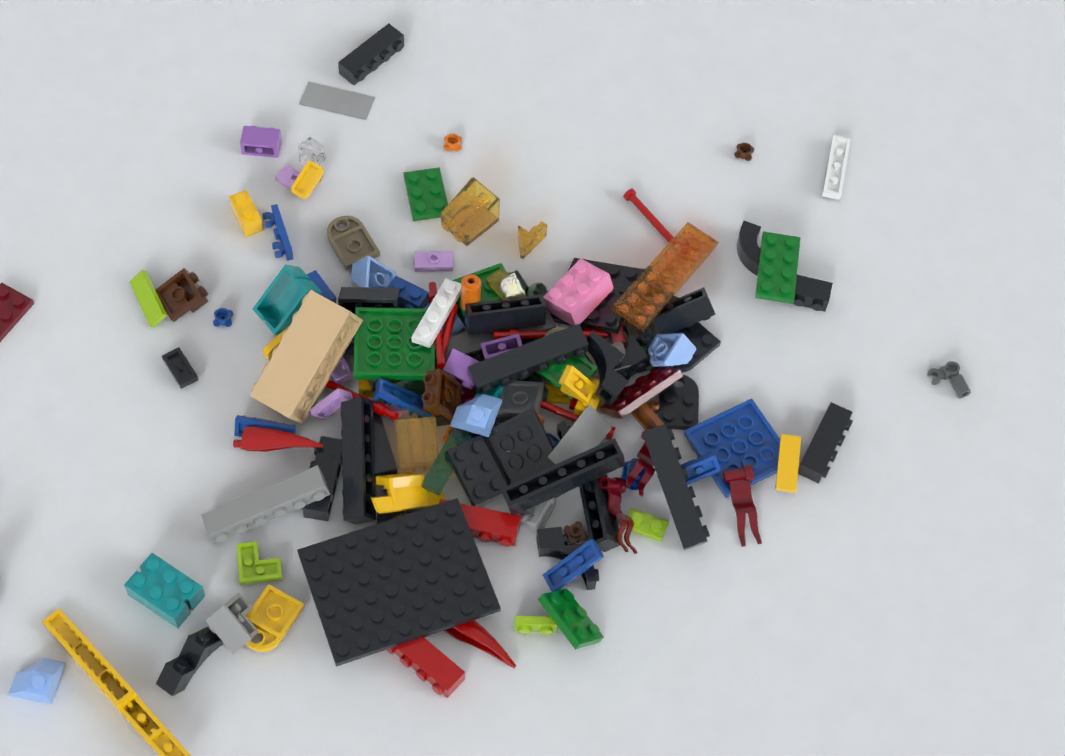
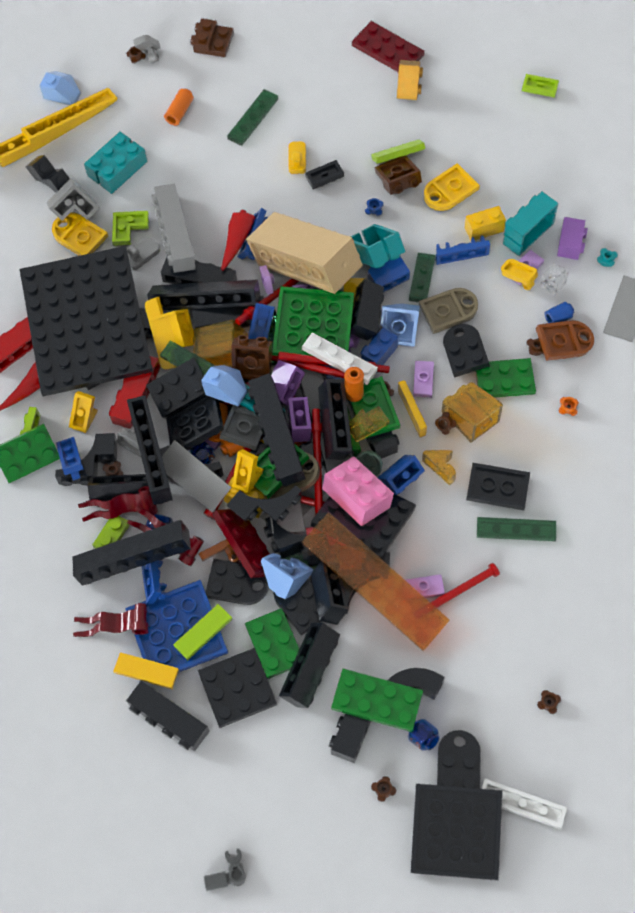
camera: 105 degrees right, 5 degrees up
(52, 287) = (408, 79): none -> brick
(58, 172) = (540, 85): none -> lime plate
(77, 531) = (178, 106): none -> orange brick
(92, 452) = (252, 117): none -> clear green tile
(155, 399) = (297, 157): none -> yellow piece
(197, 247) = (450, 188): none -> yellow plate
(249, 171) = (530, 223): none -> teal piece
(281, 114) = (607, 262): none -> teal plate
(288, 543) = (142, 253): none -> light grey piece
(326, 269) = (422, 277): none -> clear green tile
(352, 150) = (559, 313): none -> blue brick
(383, 145) = (563, 339): none -> dark orange plate
(389, 173) = (536, 351): none -> reddish brown plate
(401, 224) = (465, 352): none -> black plate
(472, 264) = (412, 408): none -> yellow tile
(488, 238) = (440, 423): none -> reddish brown plate
(510, 571) = (82, 412): none -> yellow slope
(545, 194) = (498, 486): none -> black plate
(546, 266) = (402, 473): none -> blue brick
(585, 180) = (516, 529): none -> clear green tile
(653, 244) = (428, 586): none -> lavender plate
(733, 364) = (273, 642): none -> green plate
(739, 418) = (202, 632): none -> lime tile
(753, 327) = (309, 665): none -> black brick
(782, 391) = (237, 688): none -> black plate
(799, 231) = (424, 735): none -> clear blue head
(813, 214) = (457, 764): none -> black plate
(848, 262) = (377, 787): none -> reddish brown plate
(873, 208) = (456, 832): none -> black plate

